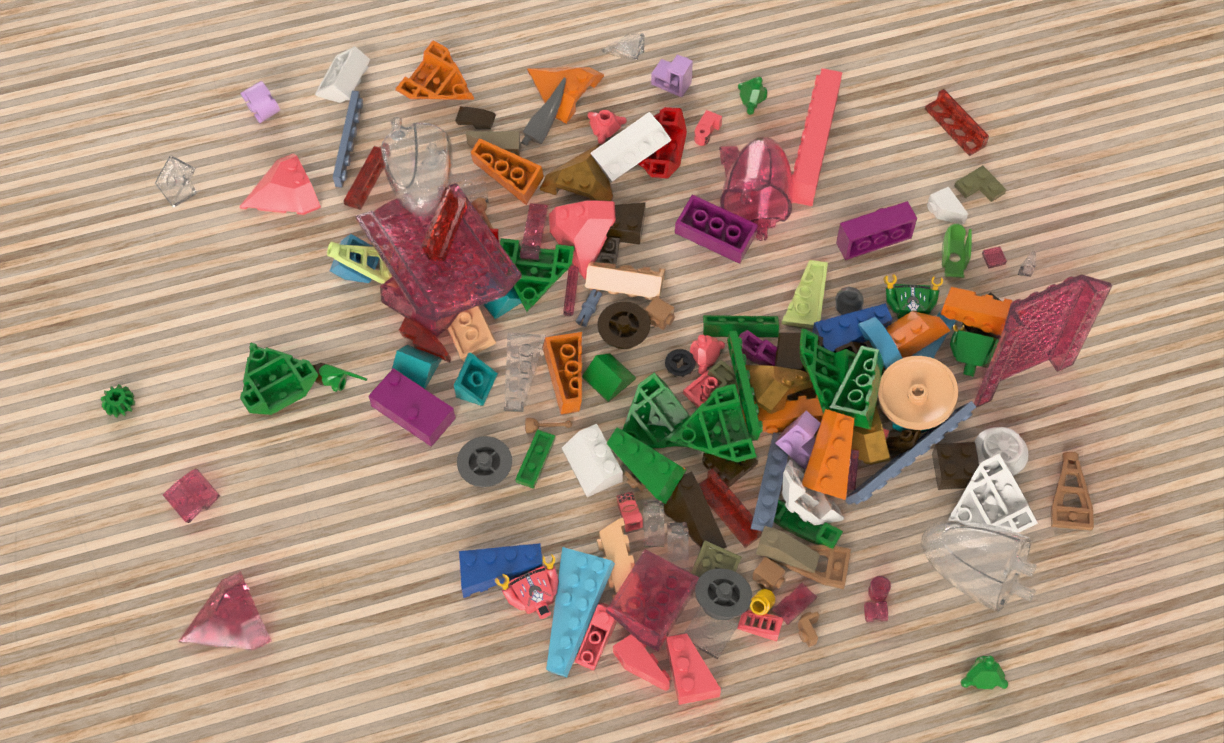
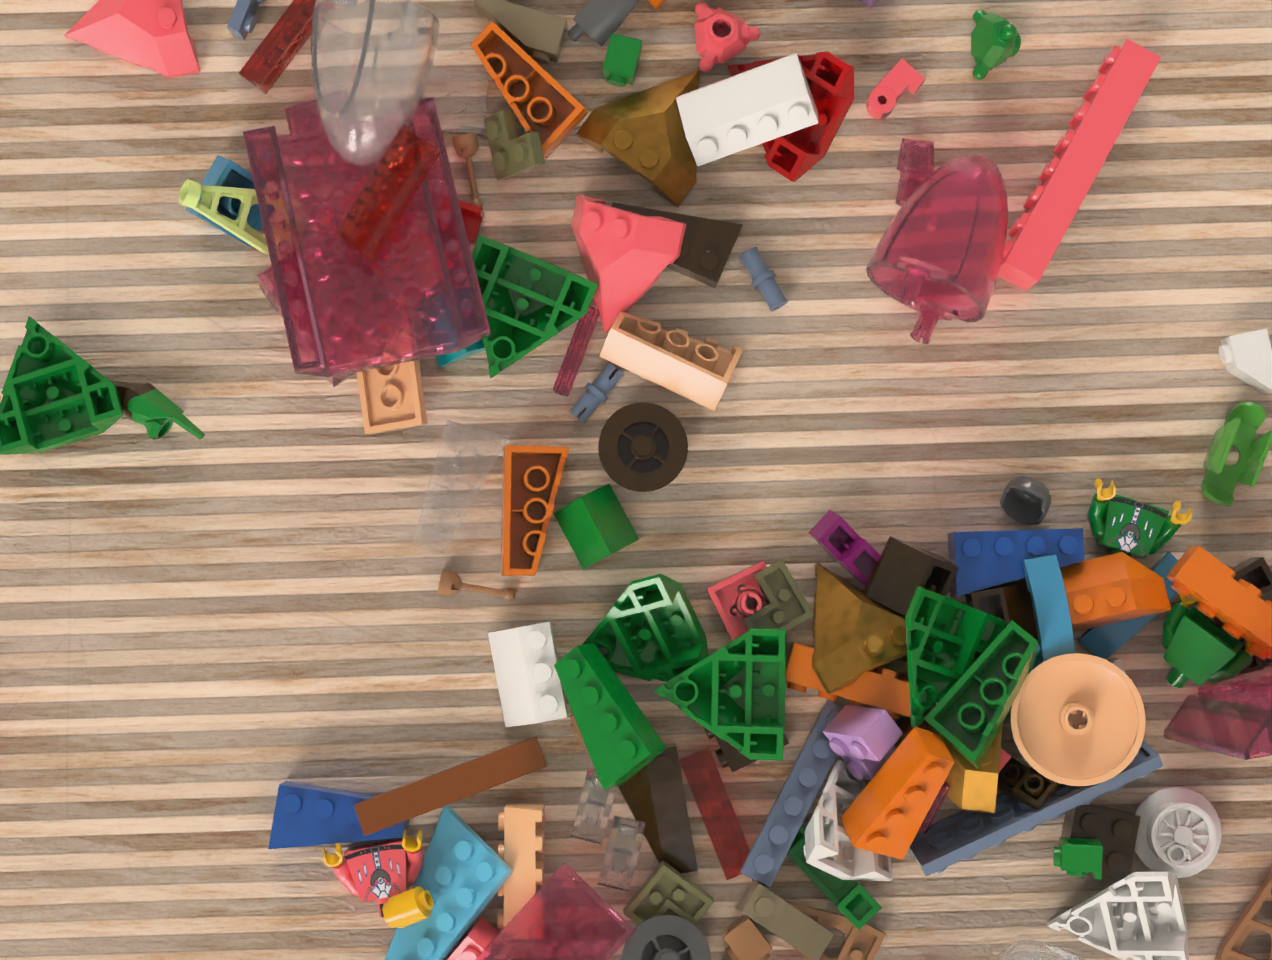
camera: 10 degrees right, 25 degrees up
(412, 407) = (265, 503): magenta brick -> none
(416, 364) = (290, 423): teal slope -> none
(423, 339) = (316, 392): clear red slope -> none
(474, 380) = (378, 481): teal slope -> none
(484, 461) = (356, 635): dark grey wheel -> none
(506, 200) = (509, 152): none -> olive plate
(534, 231) = (542, 223): clear pink tile -> none
(535, 459) = (440, 645): green plate -> none
(555, 146) = (622, 60): none -> green brick
(556, 599) = (408, 907): none -> yellow brick
(562, 527) = (449, 786): none -> dark orange tile
(609, 251) = (658, 297): dark brown slope -> none
(629, 511) = (563, 775): coral leg -> none
(660, 313) = (709, 437): medium nougat brick -> none
(665, 231) = (763, 279): none -> sand blue pin
(676, 356) = (732, 532): black gear -> none
(706, 351) = (763, 529): coral rock -> none
(716, 229) = (848, 303): magenta brick -> none
(745, 391) = (801, 637): green plate -> none
(758, 325) = (836, 490): green slope -> none
(808, 297) = (960, 474): yellowish green wing -> none
(876, 230) = (1115, 381): magenta brick -> none
(947, 465) = (1079, 856): none -> green brick

